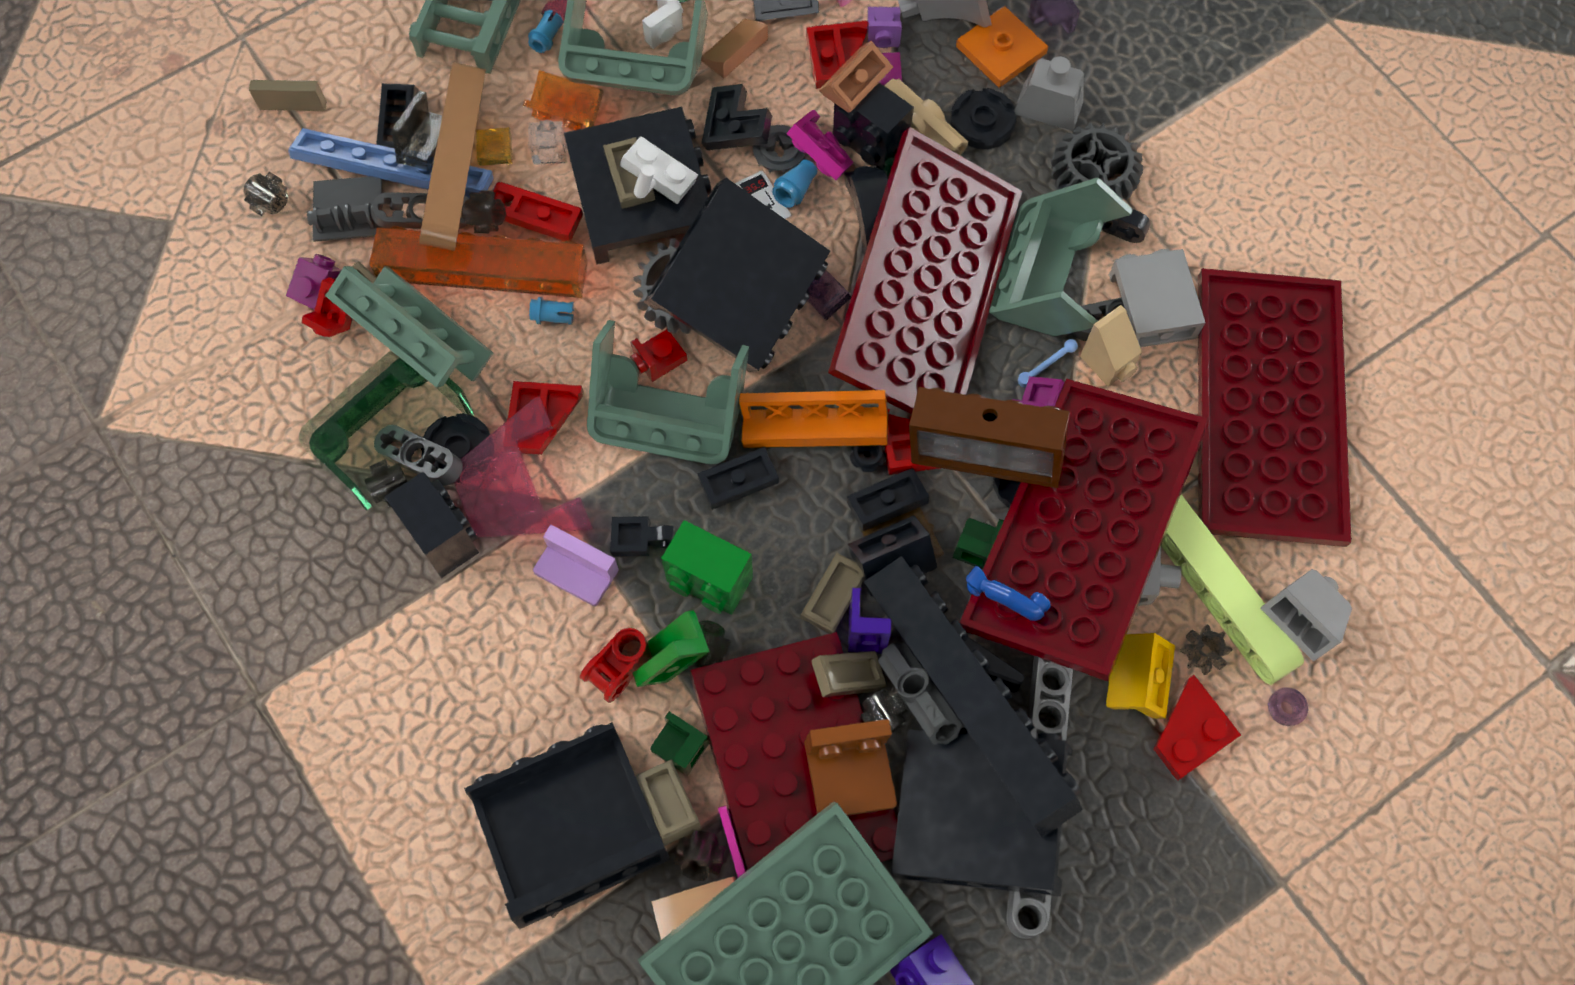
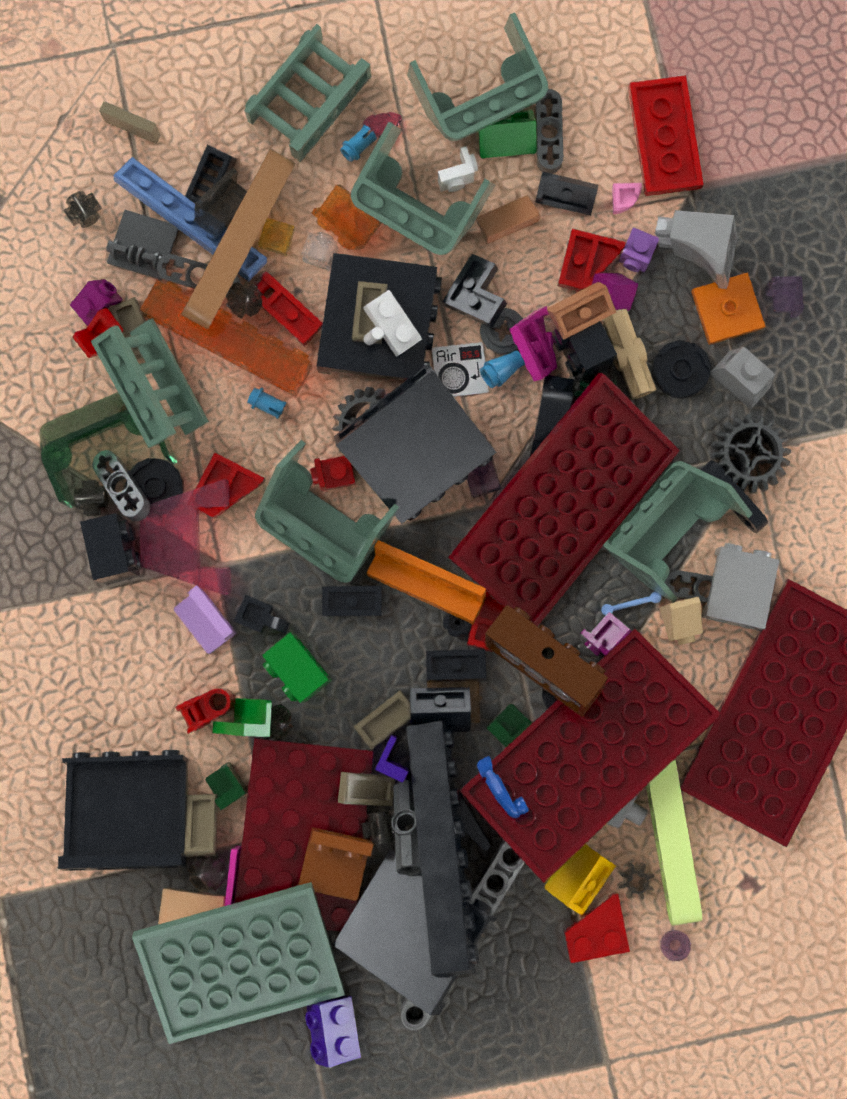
camera: 25 degrees right, 15 degrees up
(1311, 613) = (725, 889): light grey torso -> none

